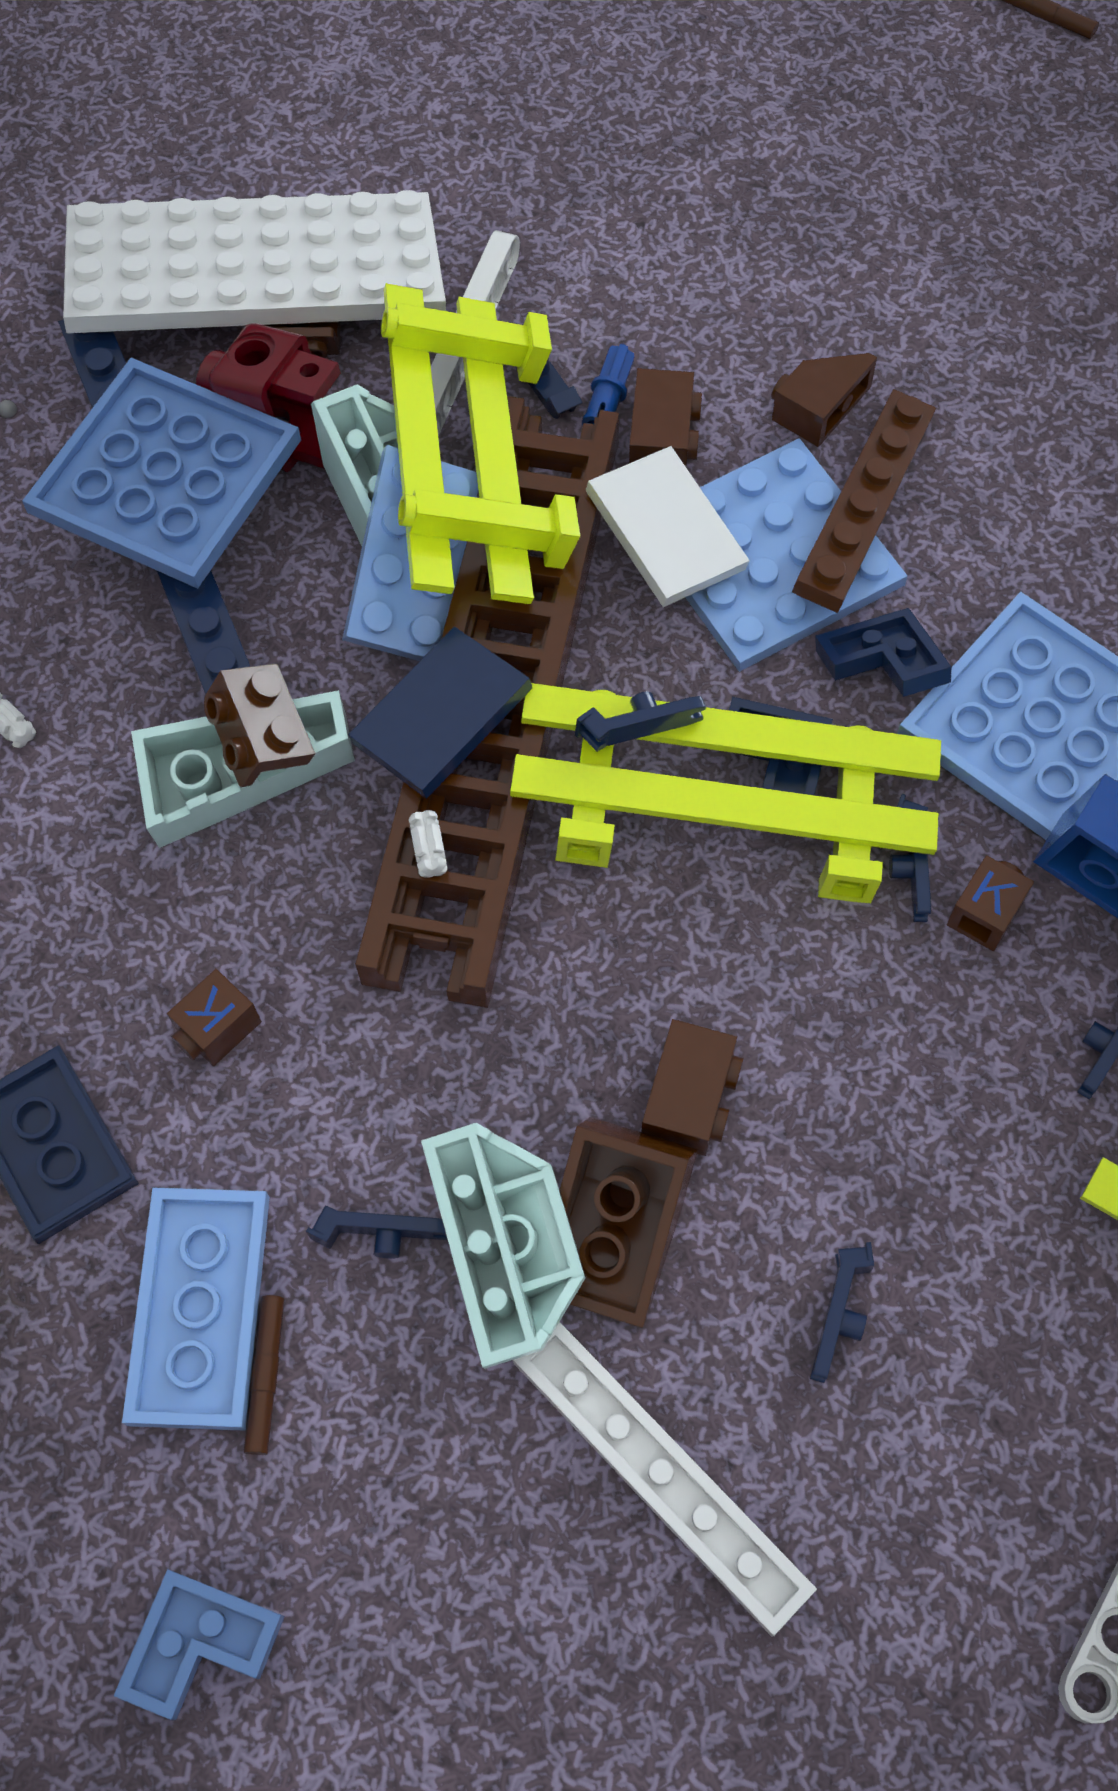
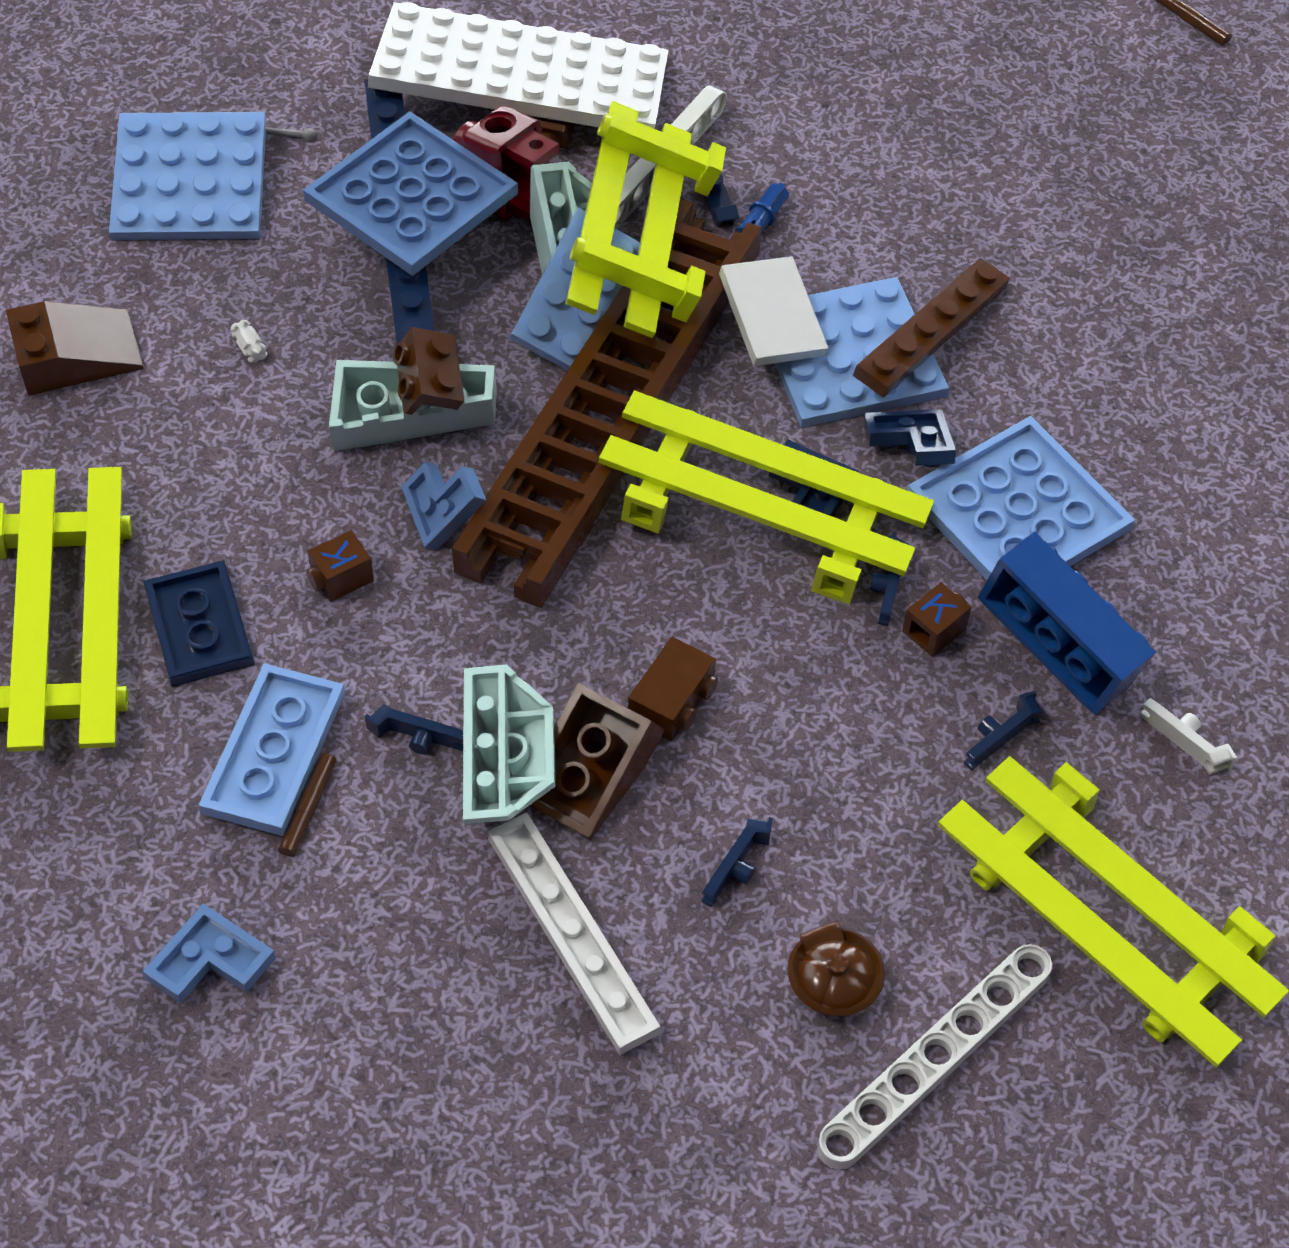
camera: 10 degrees right, 10 degrees down
(320, 904) = (440, 506): none -> medium blue plate
(428, 844) = (528, 479): white piece -> none
(440, 711) = (564, 395): dark blue tile -> none
(644, 721) = (709, 433): dark blue piece -> none
(663, 414) = (800, 234): reddish brown brick -> none
(821, 394) = (924, 250): reddish brown slope -> none
(1015, 1444) = (836, 970): none -> reddish brown piece

